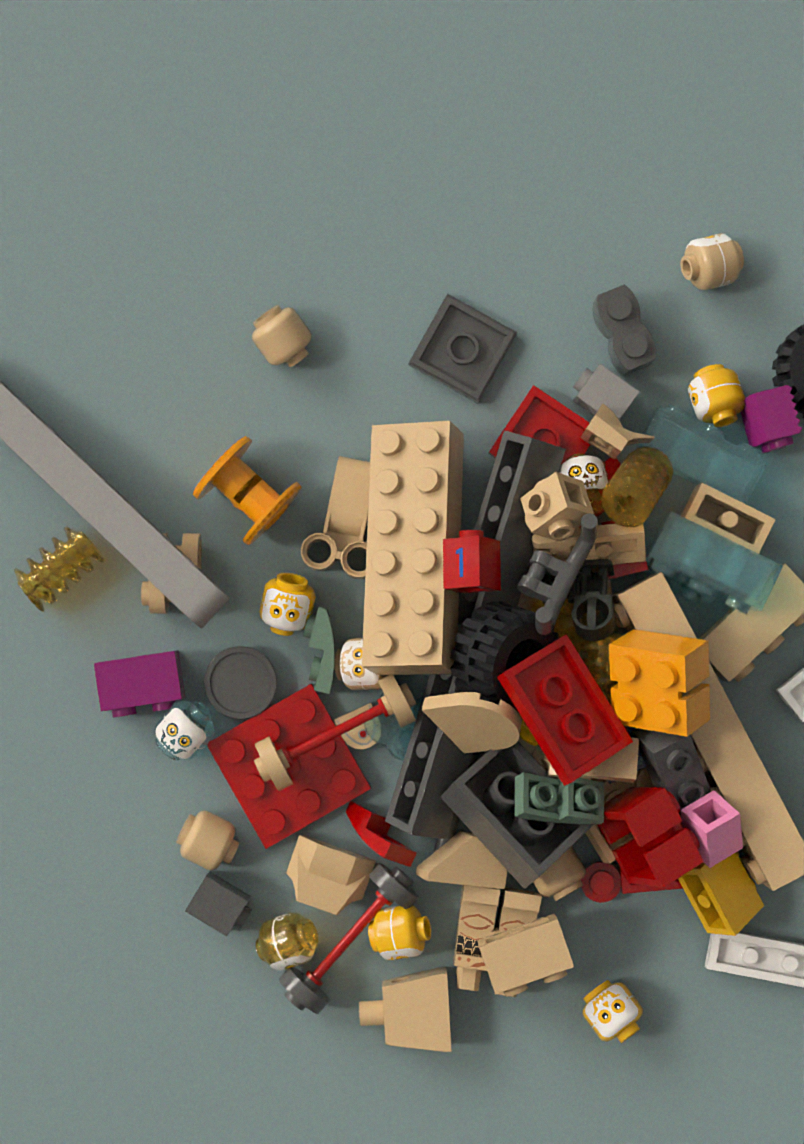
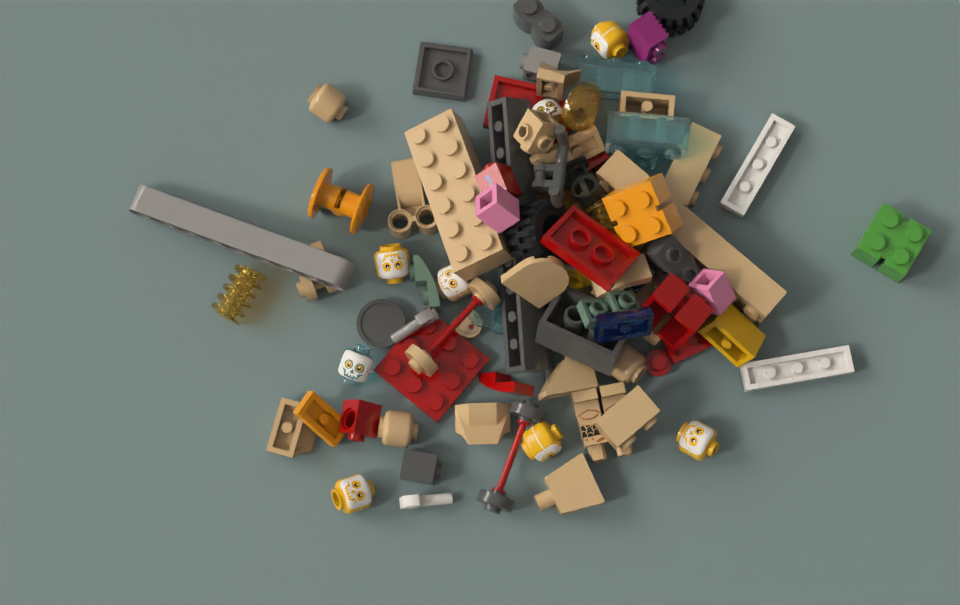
camera: 10 degrees left, 10 degrees down
(64, 786) = (289, 433): none -> tan slope
(108, 789) = (319, 418): none -> light orange plate
(114, 906) = (352, 494): none -> head
(139, 682) = (316, 346): magenta brick -> none
(160, 809) = (359, 419): none -> red brick
(196, 949) = (418, 500): none -> white bar
(282, 708) = (421, 320): none -> light grey bar
(287, 941) = (472, 474): clear yellow head -> none
(455, 604) = (497, 208): none -> bright pink brick
(569, 834) = (623, 324): none -> clear blue plate

